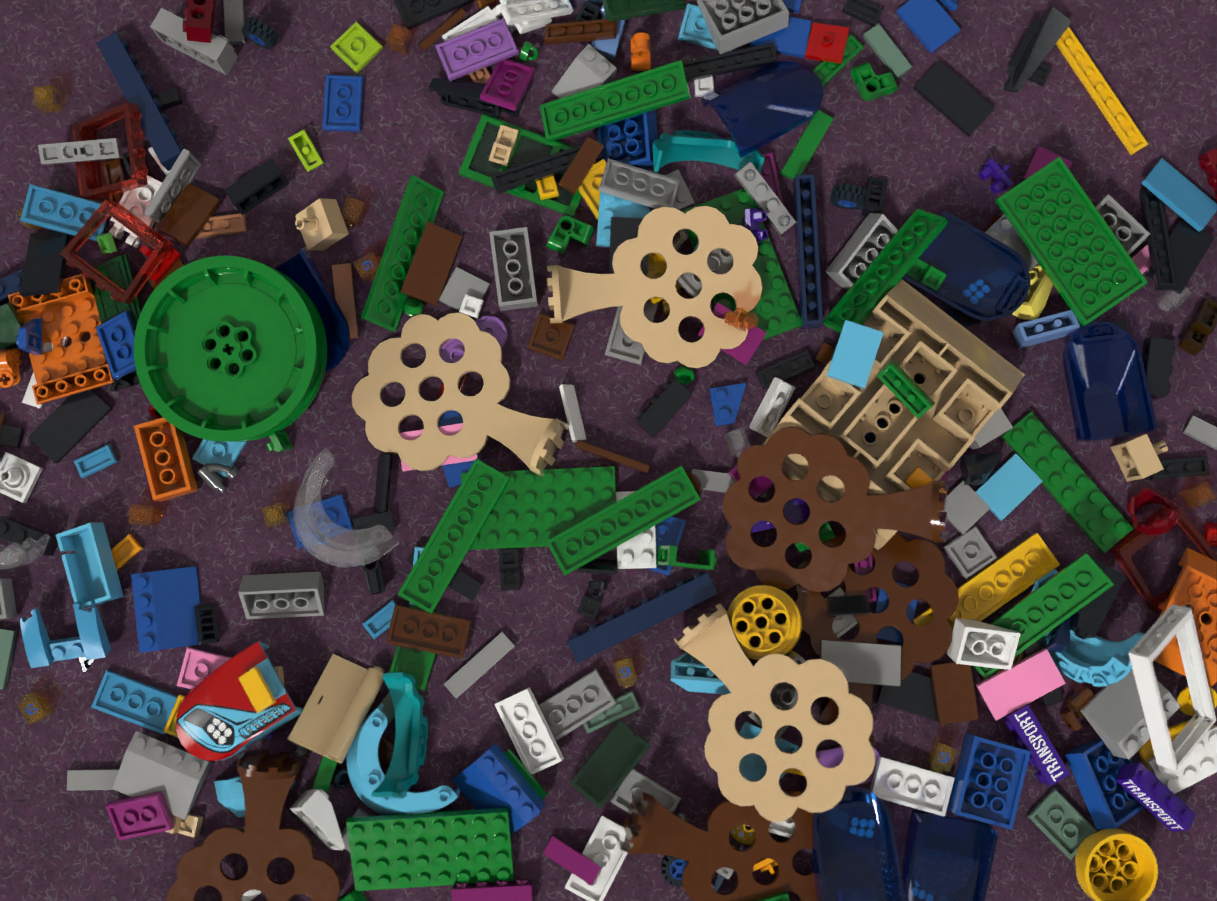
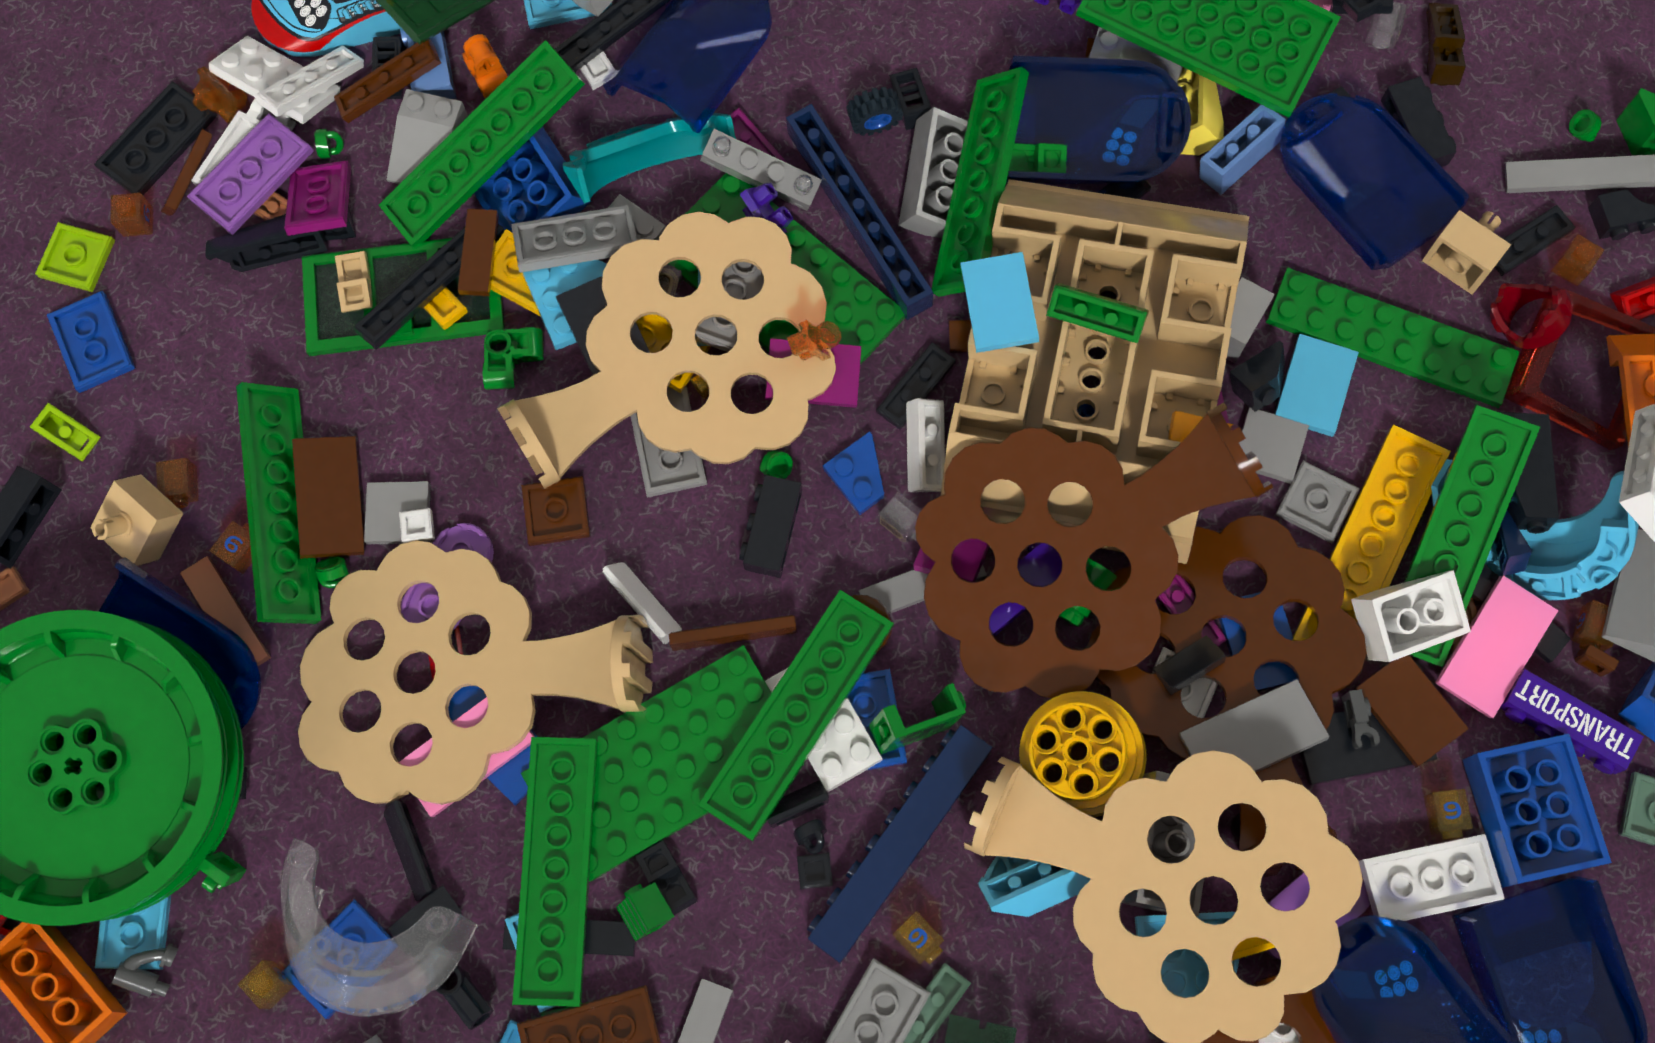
camera: 20 degrees left, 10 degrees down
(489, 581) = (644, 910): none -> green brick
(513, 269) = (452, 442): light grey brick -> none
(807, 145) = (781, 76): green tile -> none
(922, 681) = (1357, 714): none -> dark grey plate

